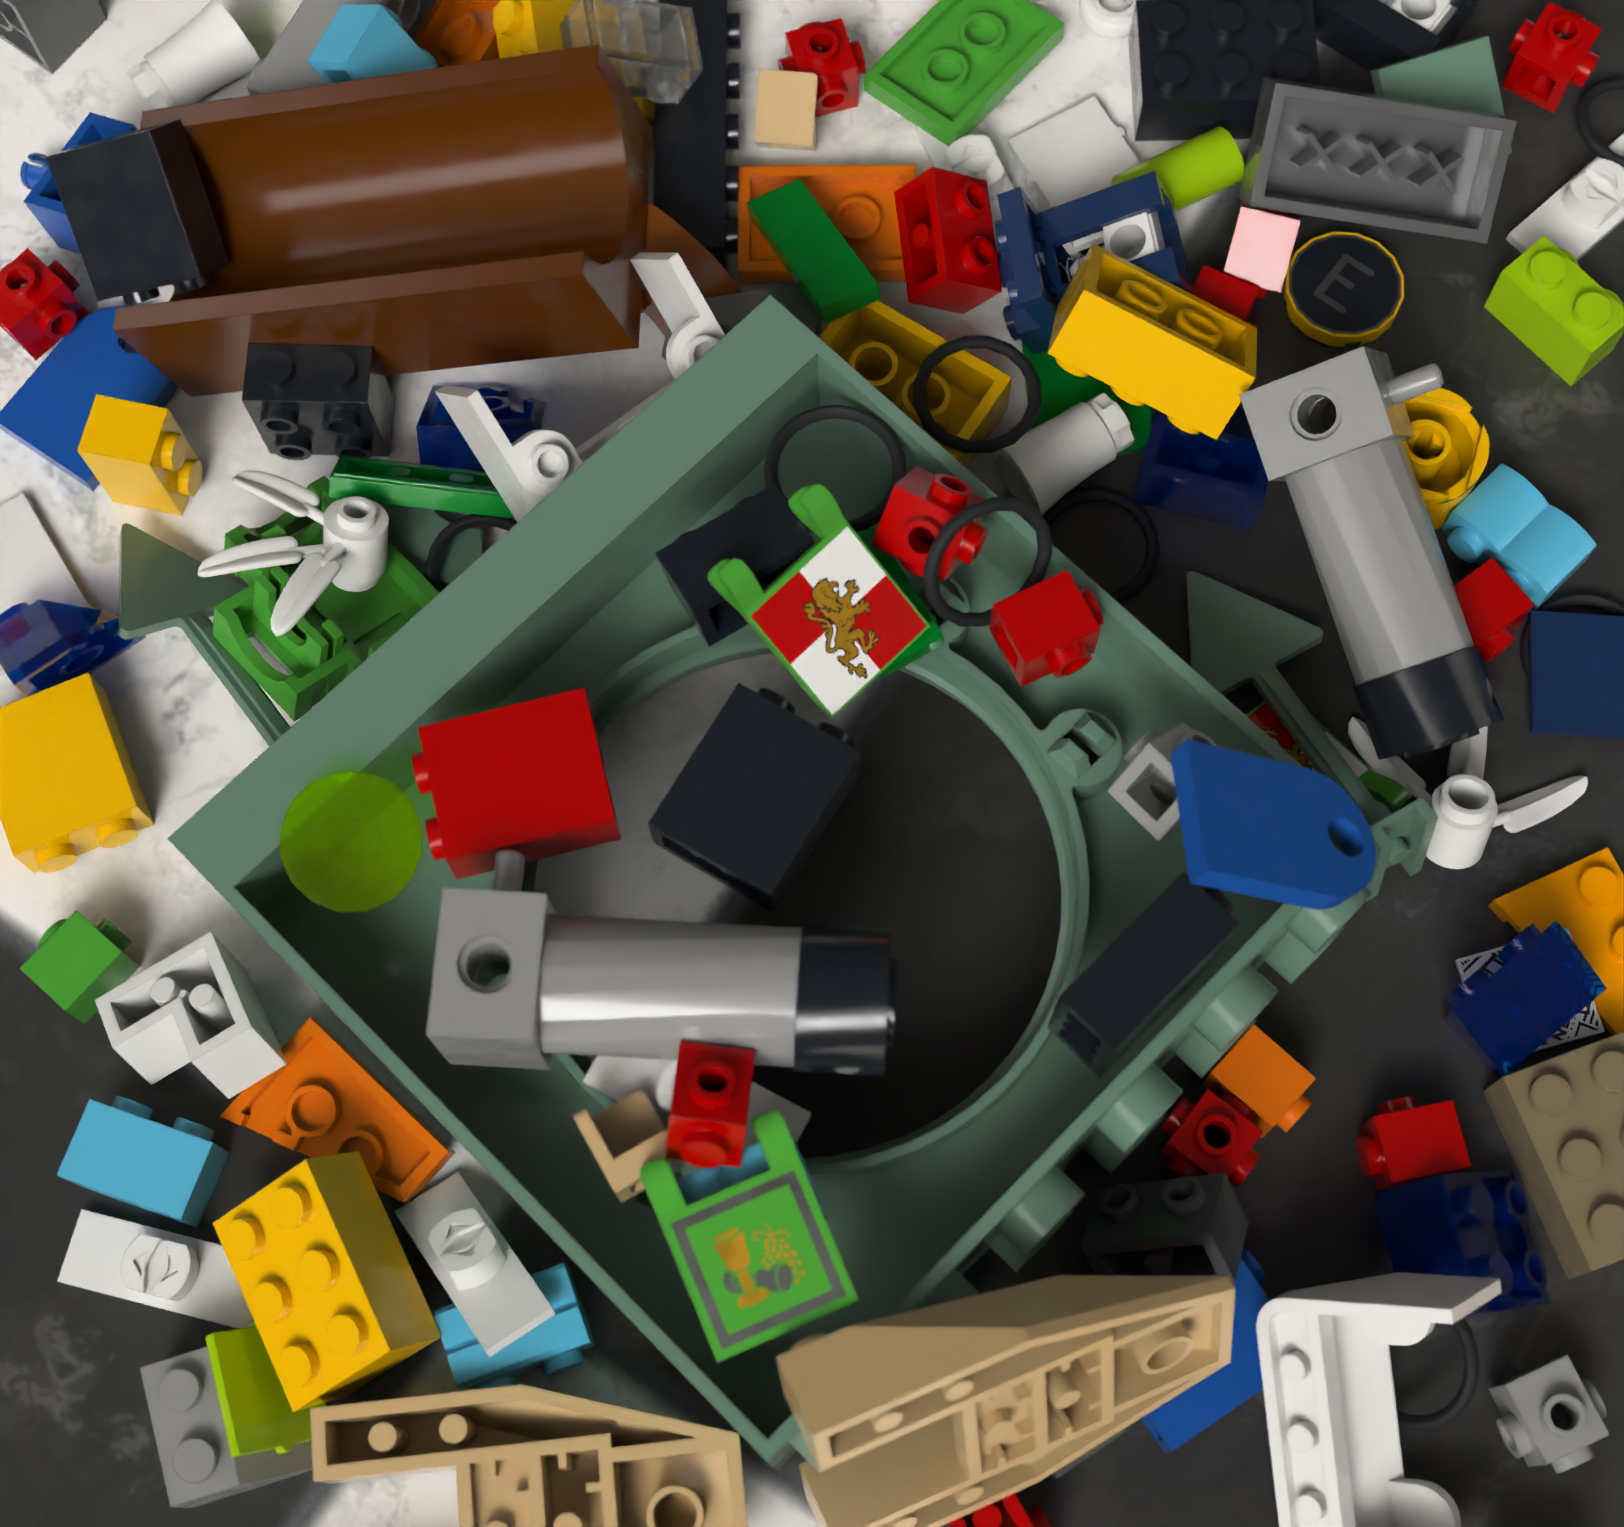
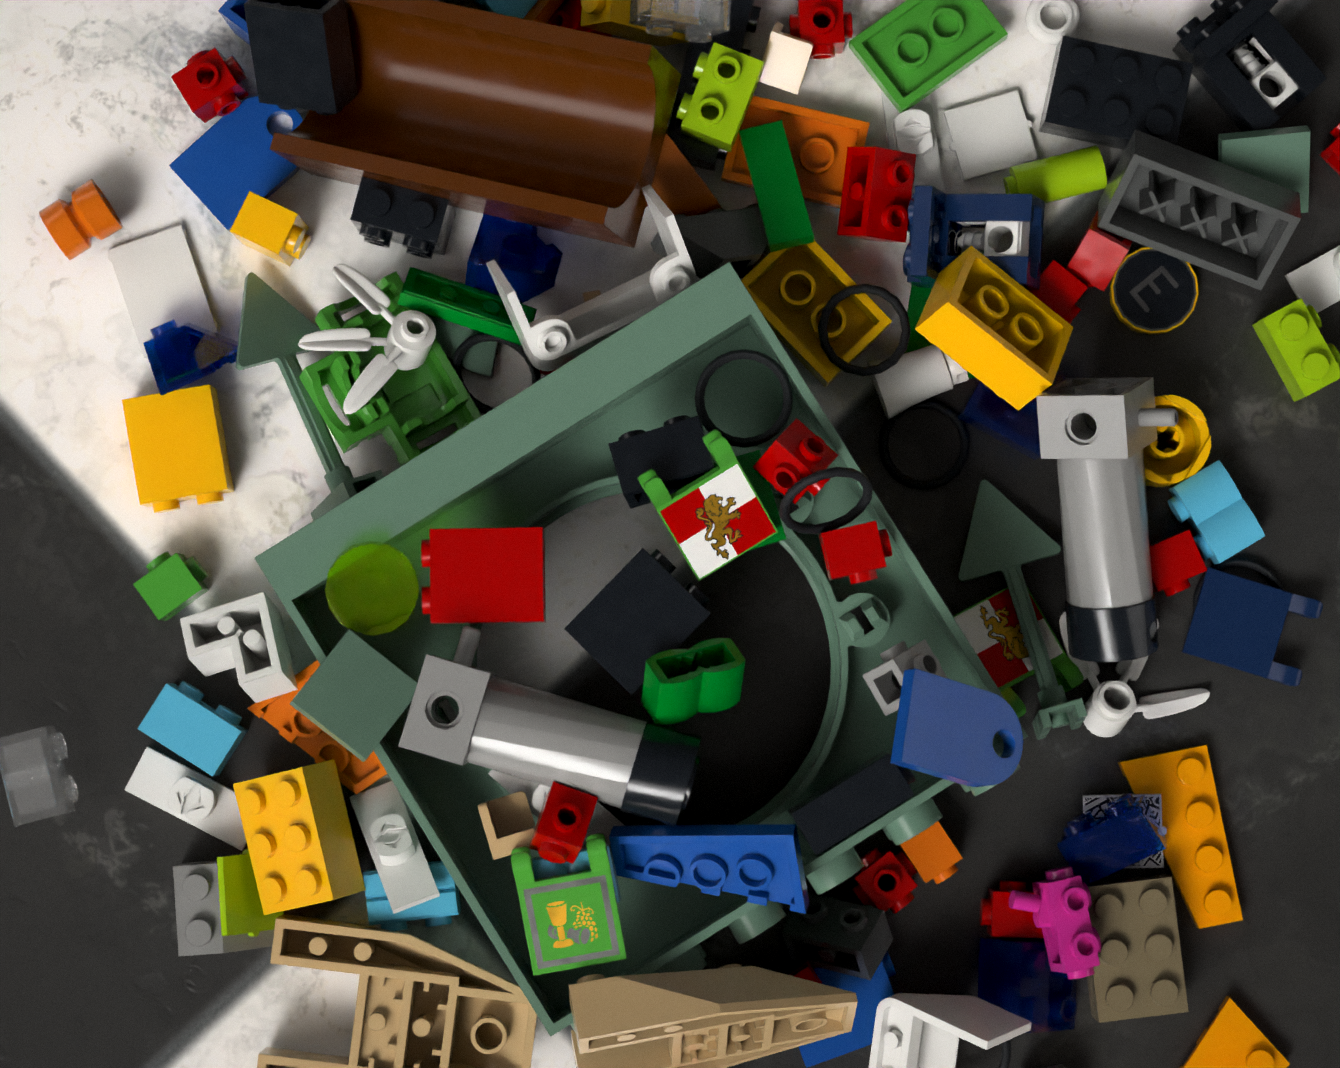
camera: 15 degrees right, 15 degrees up
(351, 1000) = (355, 695): none -> sand green tile
(711, 156) = (720, 97): none -> lime brick
(858, 854) = (693, 680): none -> green brick
(983, 1106) = (735, 859): none -> blue wing
(1496, 1125) = (1062, 912): none -> dark pink brick

